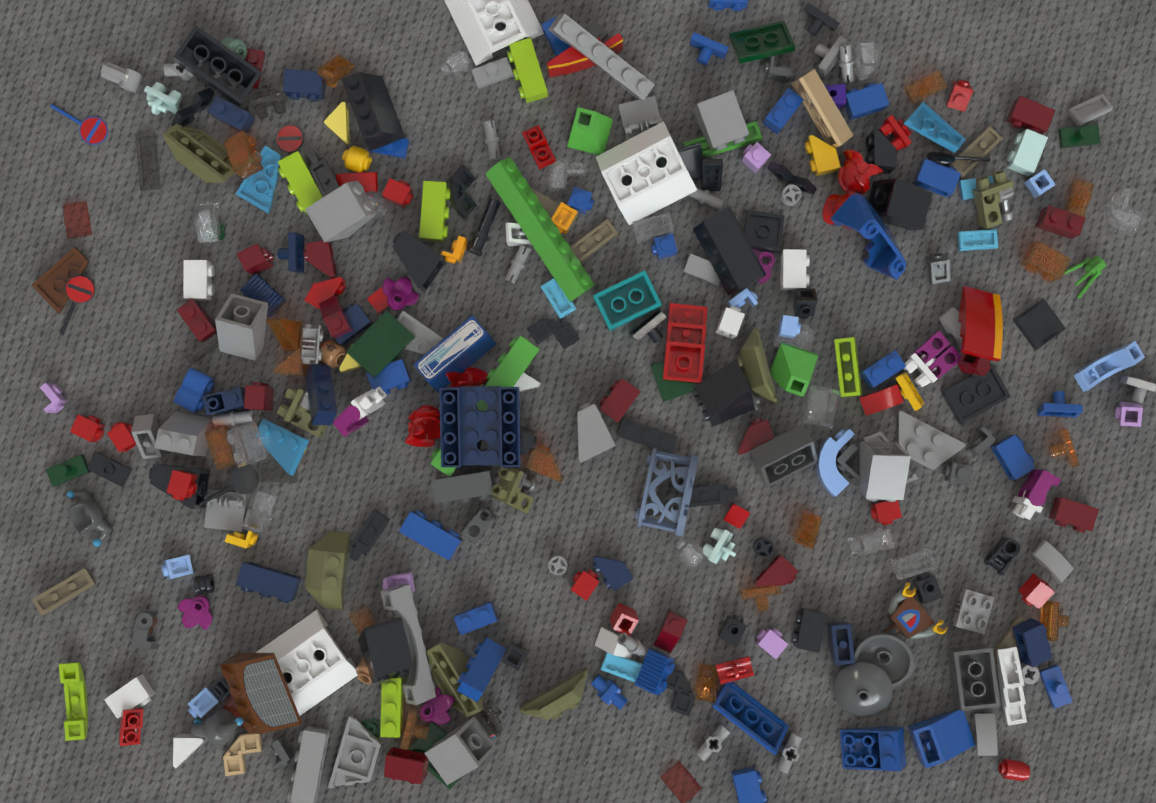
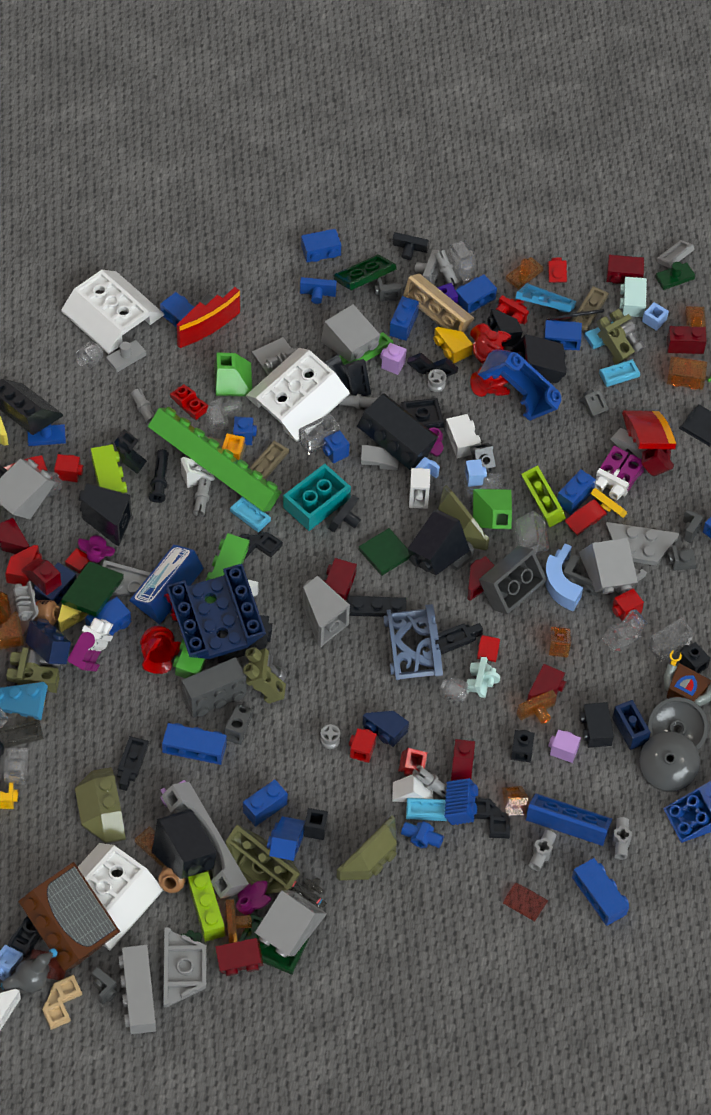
camera: 25 degrees left, 30 degrees down
(268, 582) = (42, 829): dark blue brick -> none
(357, 159) = (20, 449): yellow head -> none
(458, 249) = (139, 504): light orange bracket -> none
(527, 70) = (159, 344): lime brick -> none
(544, 463) = (287, 652): clear orange slope -> none
(602, 56) = (256, 323): light grey arch -> none
(685, 343) = (384, 518): red slope -> none
(734, 670) = (538, 777): red hips -> none
(765, 550) = (524, 662): black wheel -> none
(975, 395) = (670, 493): black tile -> none

